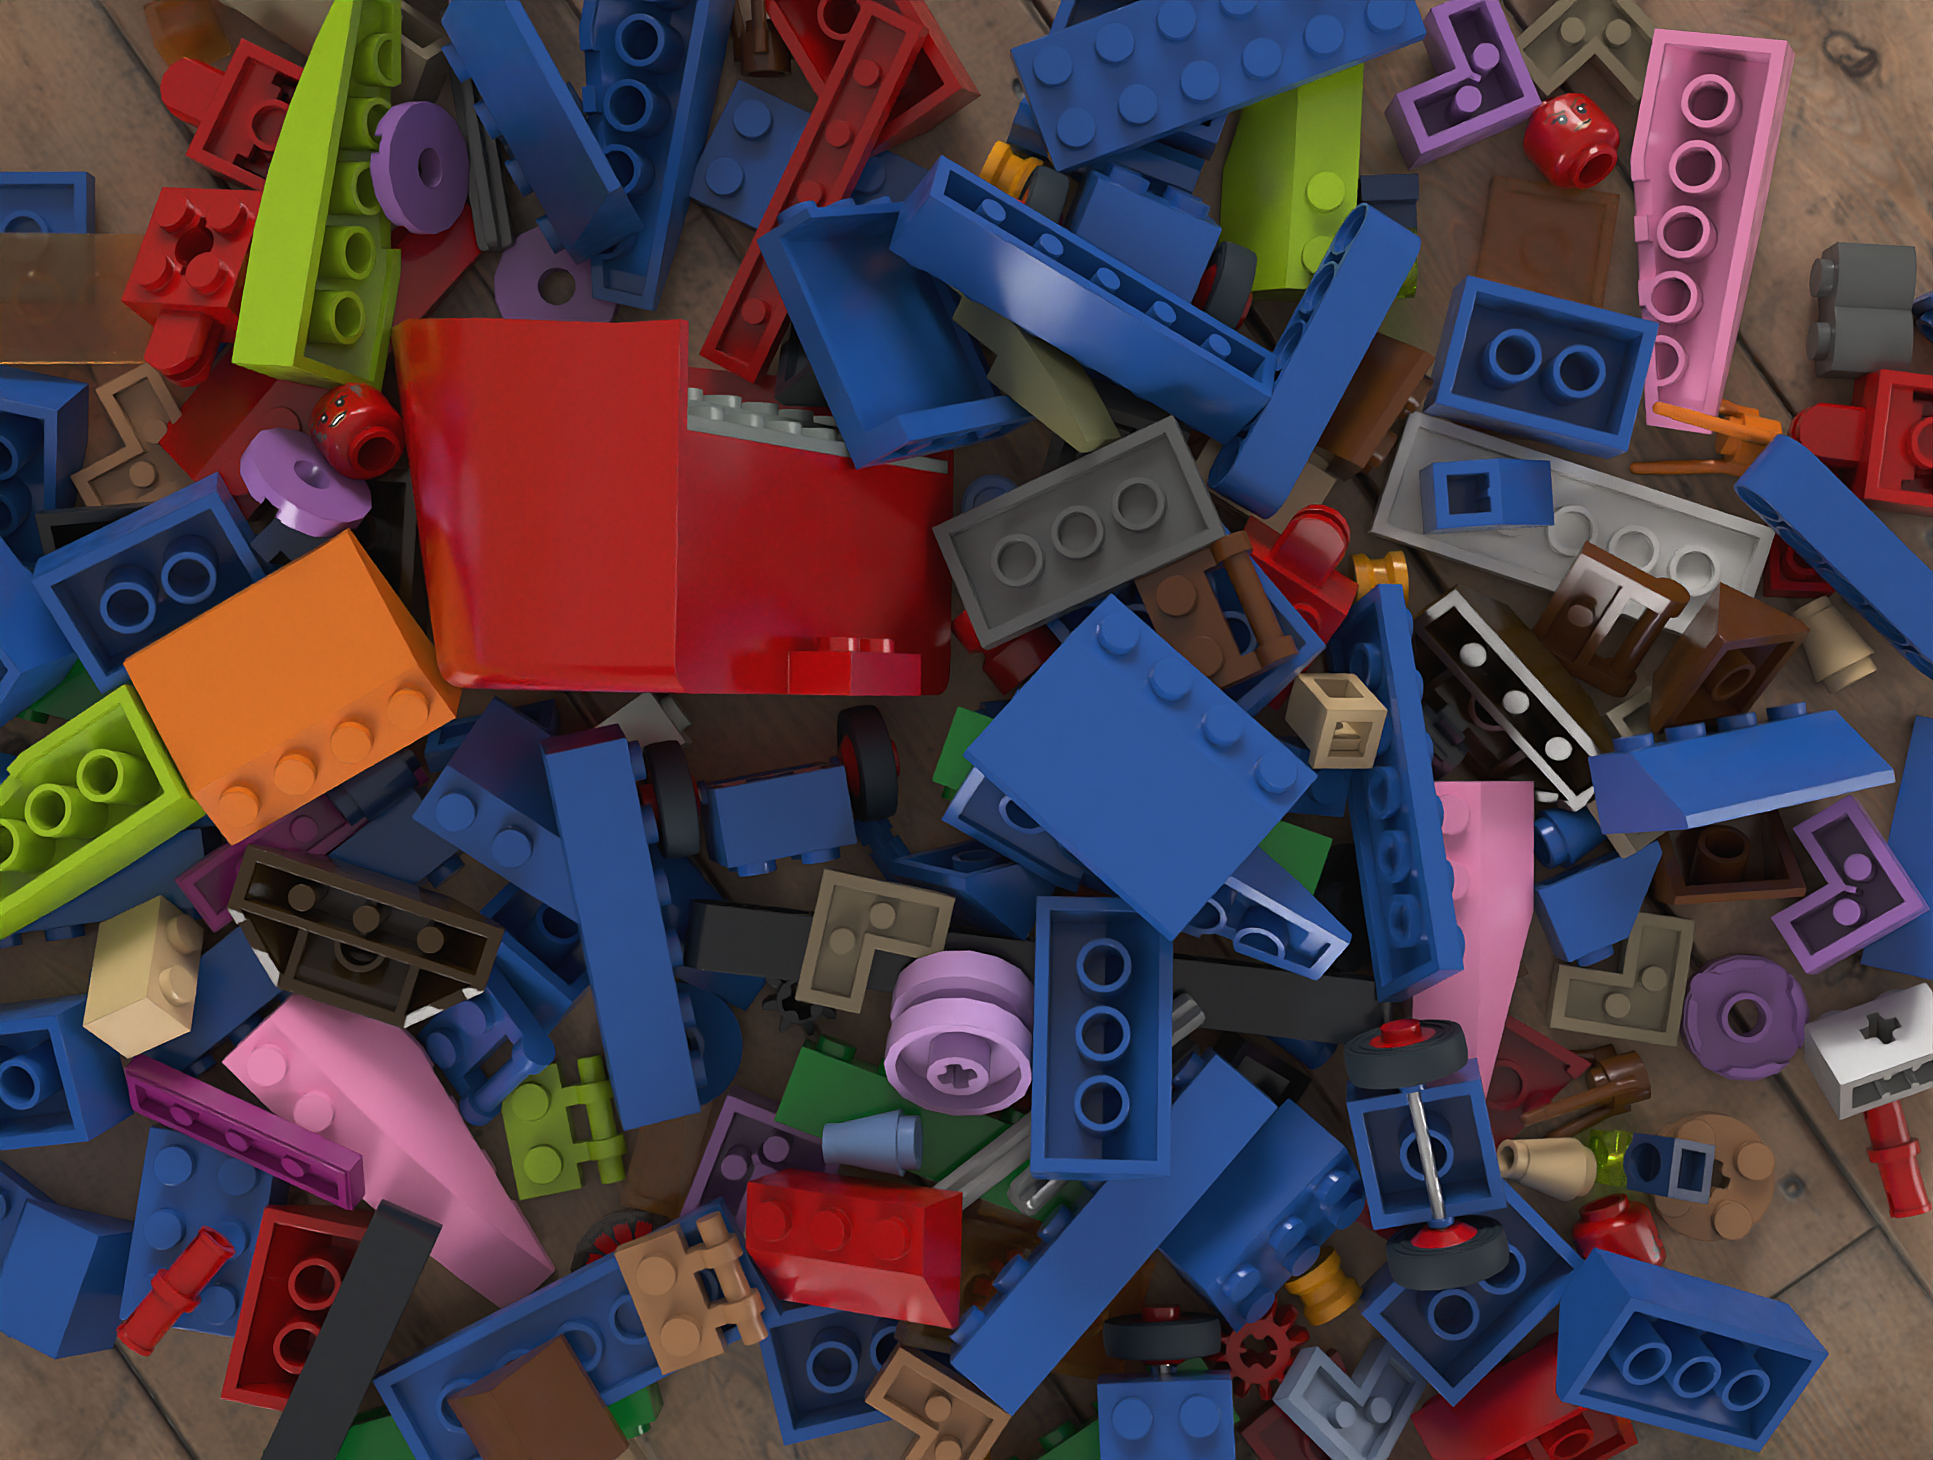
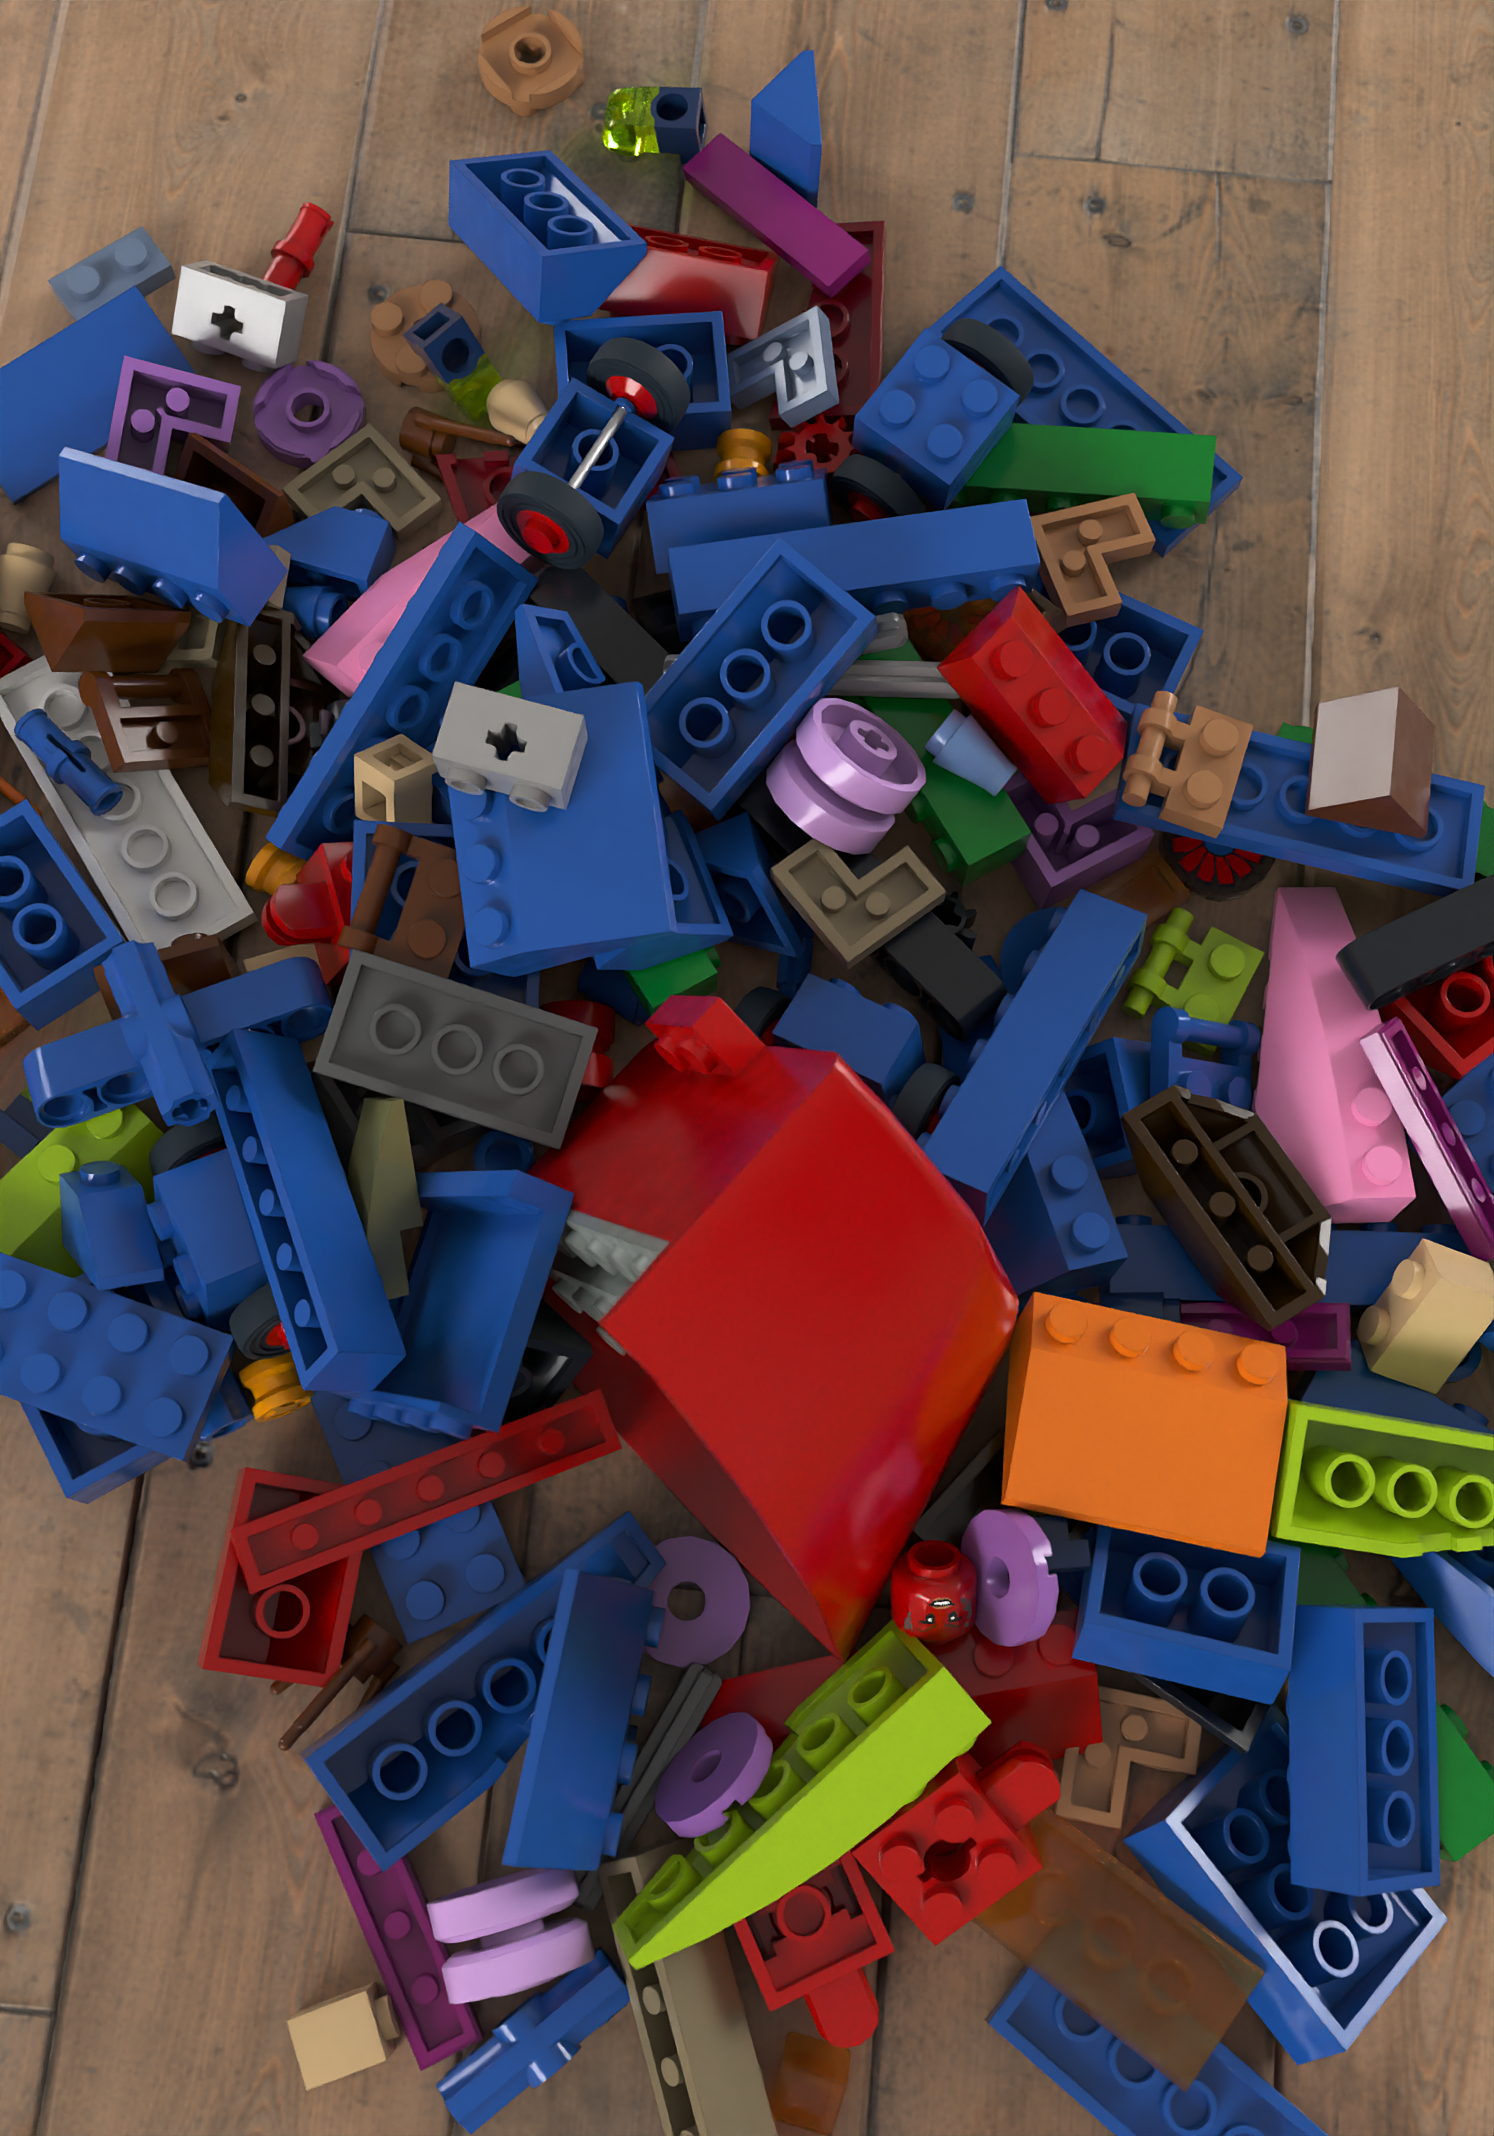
camera: 145 degrees left, 15 degrees down
(1233, 174) = (108, 1226): none -> blue slope
(1263, 781) = (487, 723): none -> light grey brick
(1320, 341) = (160, 1034): none -> blue piece
(1486, 495) = (155, 860): blue slope -> none
(1619, 1228) = (519, 343): red head -> none
(1678, 526) = (68, 762): none -> blue pin

